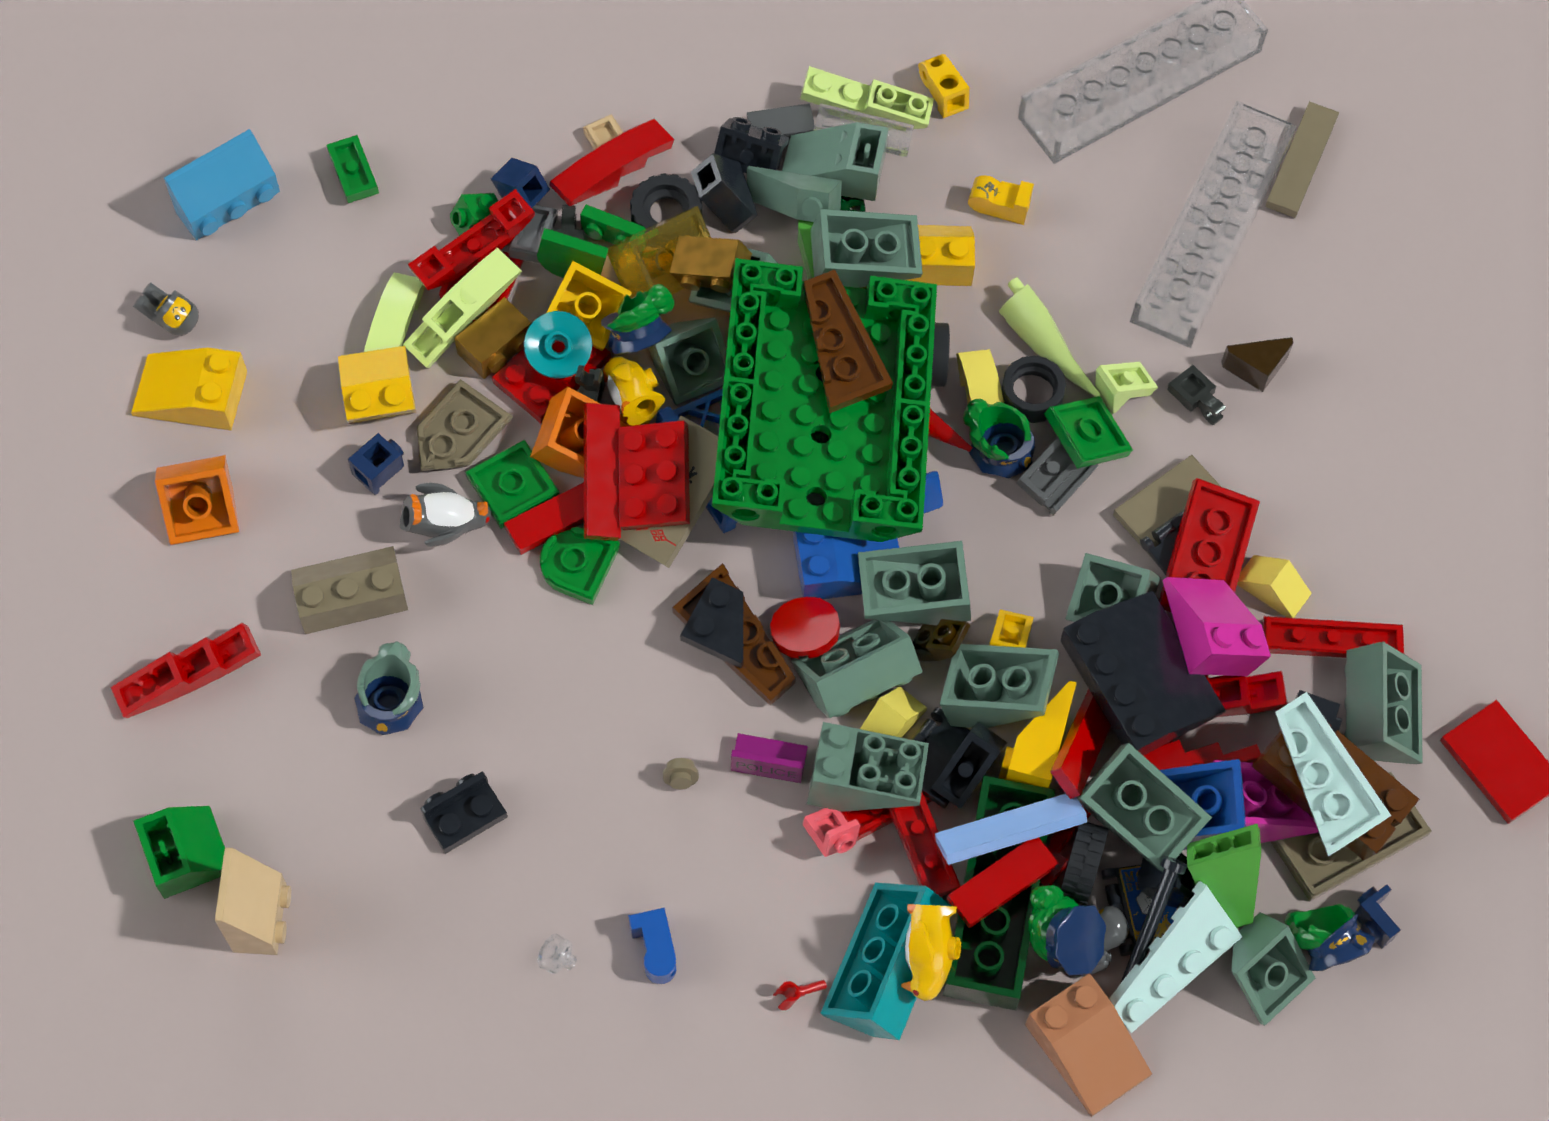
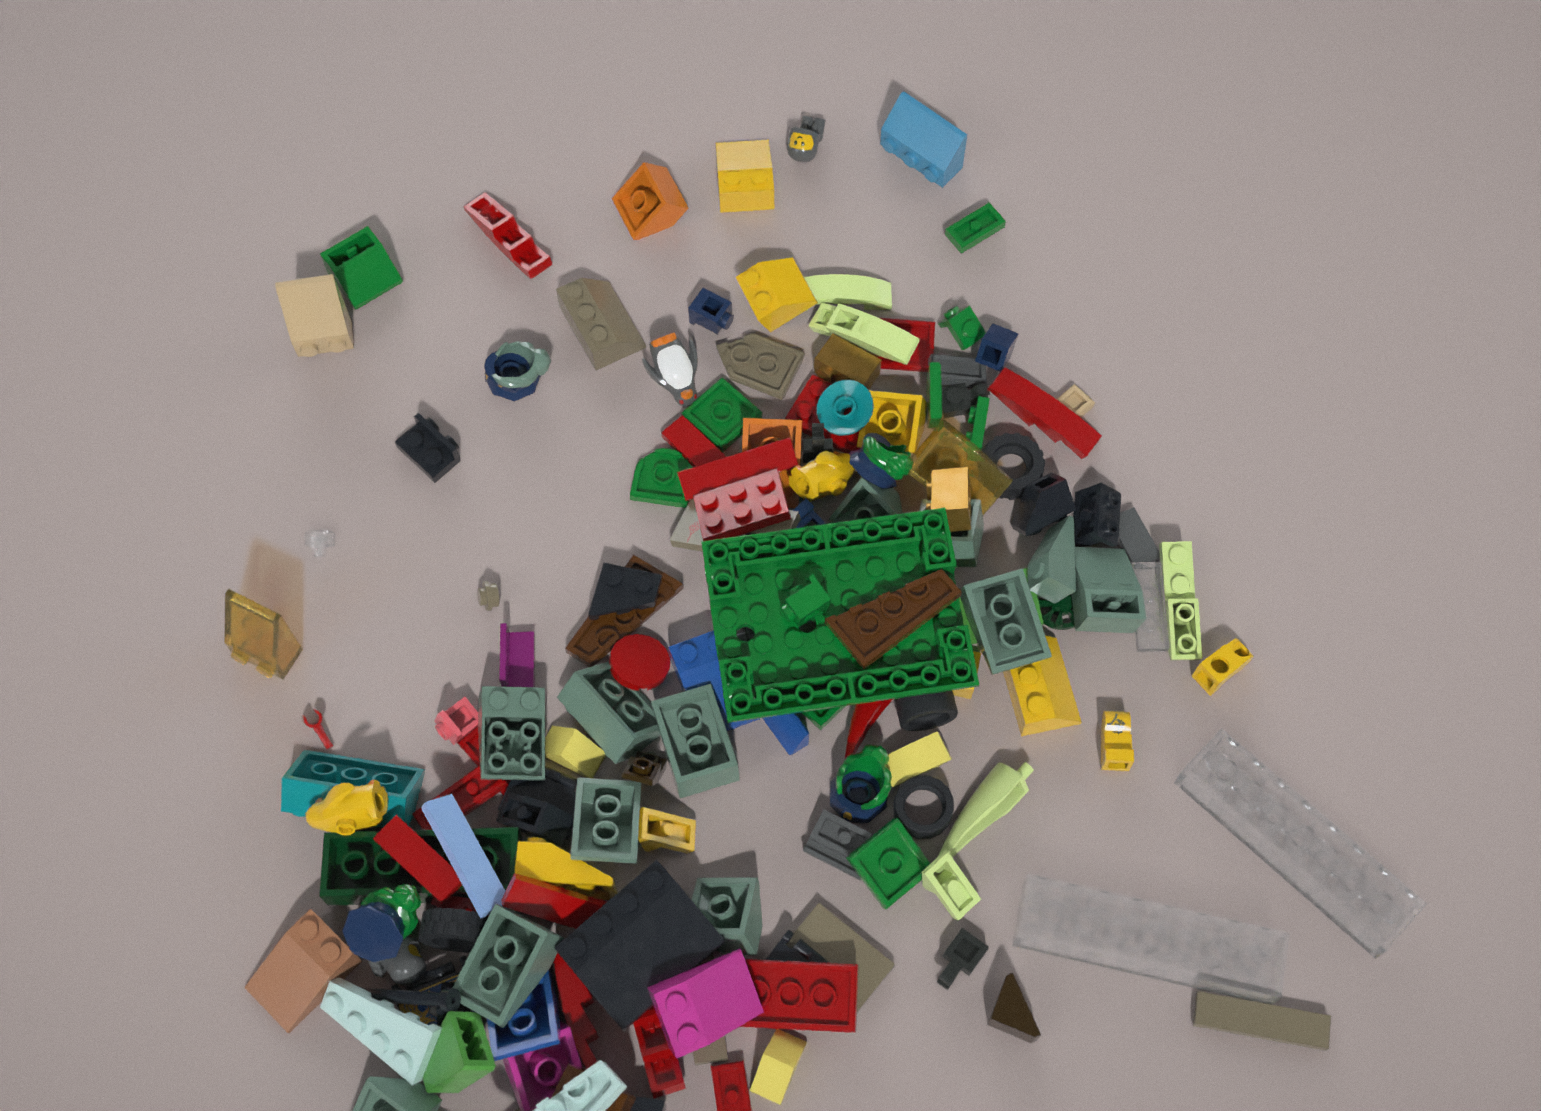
camera: 80 degrees right, 0 degrees up
(462, 254) = (932, 332): red slope -> none
(660, 953) = (339, 611): blue leg -> none
(680, 1030) = (259, 636): none -> clear yellow slope
(807, 418) = (805, 602): none -> green brick

